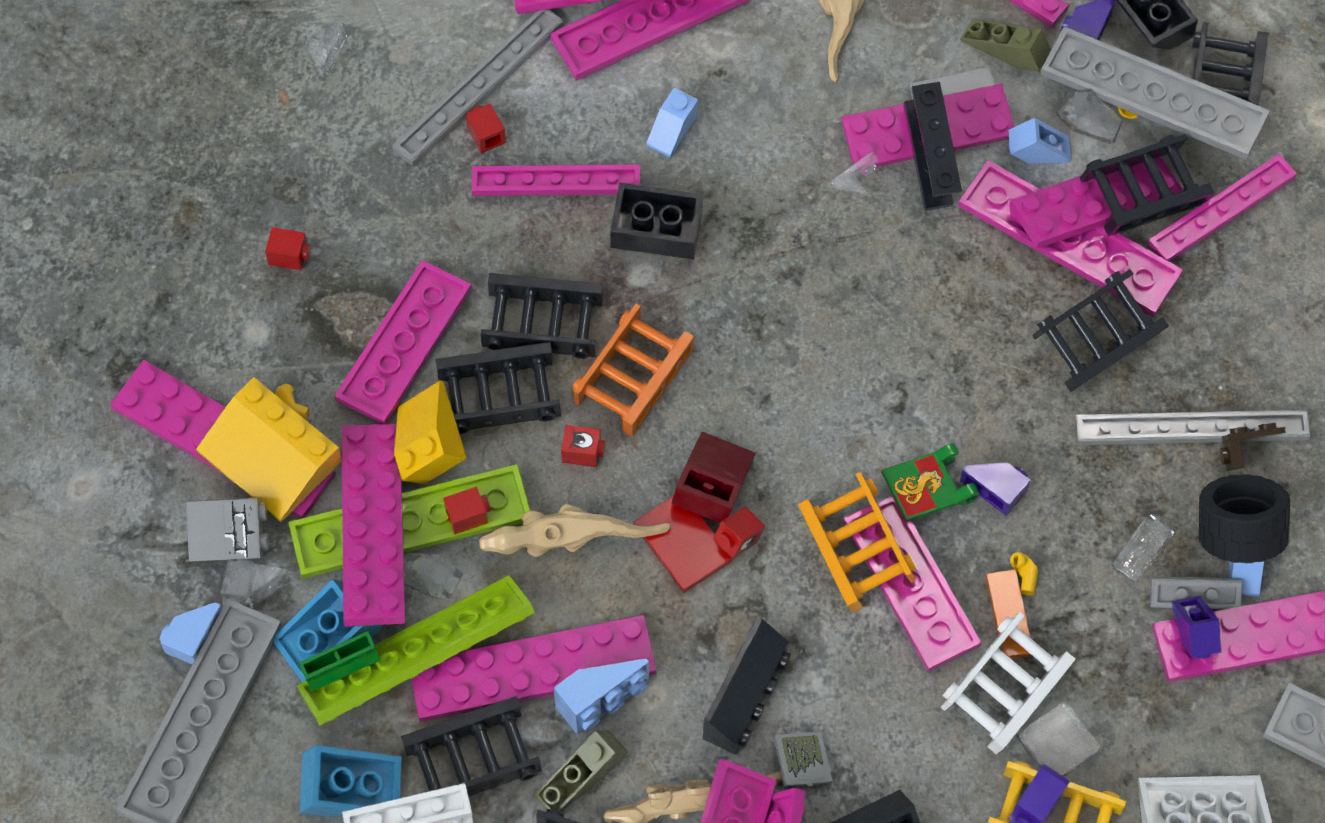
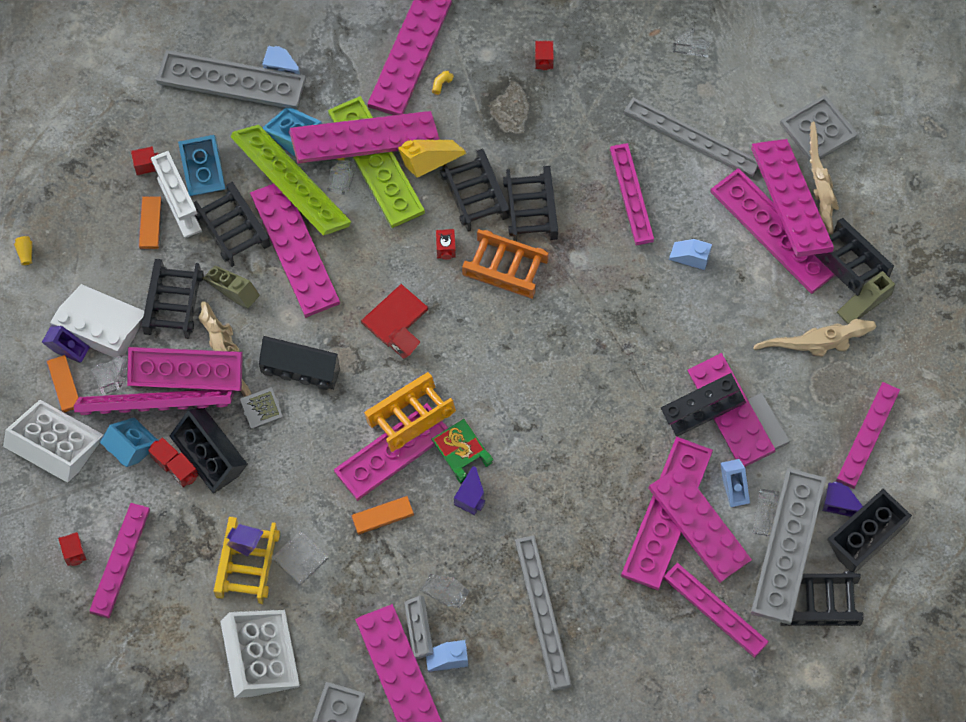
camera: 80 degrees right, 0 degrees up
(226, 529) = (346, 62): light grey brick -> none
(252, 583) = (317, 85): clear slope -> none
(269, 449) = (402, 73): yellow slope -> none
(339, 661) = (272, 138): green piece -> none
(403, 342) = (496, 132): dark pink plate -> none
(466, 510) = (383, 185): red brick -> none
(485, 128) = (658, 145): red brick -> none
(566, 529) = (384, 242): tan animal -> none
(599, 690) = (274, 276): light blue slope -> none
(656, 221) = (613, 255): black brick -> none
(713, 477) = (439, 320): dark red slope -> none
(848, 179) = (673, 368): clear slope -> none
(1010, 43) = (811, 448): olive slope -> none
(1027, 571) = (413, 523): yellow arm -> none
(1036, 688) = (332, 535): white fence -> none
(1102, 357) = (594, 556): black fence -> none
(1147, 211) = (694, 552): black fence -> none
(1197, 627) = (388, 625): dark purple slope -> none
(1232, 453) = (527, 635): dark brown bracket -> none
(1244, 518) = (454, 651): black tyre -> none

